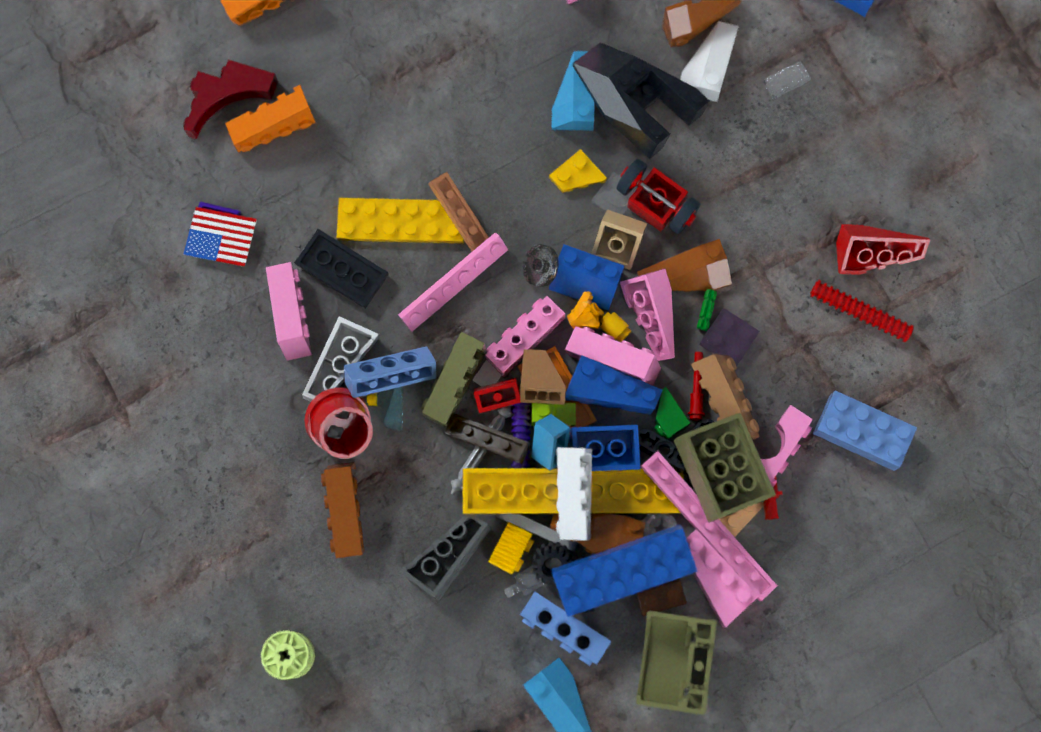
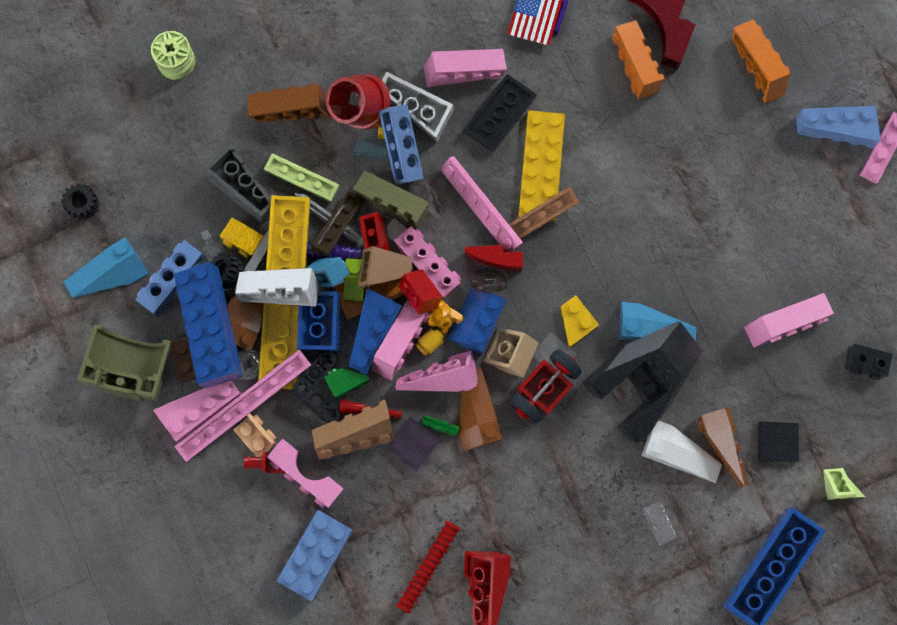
camera: 85 degrees right, 0 degrees up
(432, 487) = (301, 178): none -> yellowish green plate
(513, 261) = (495, 257): none -> red slope
(563, 336) = (420, 291): none -> red brick
(724, 467) = (289, 421): olive slope -> none

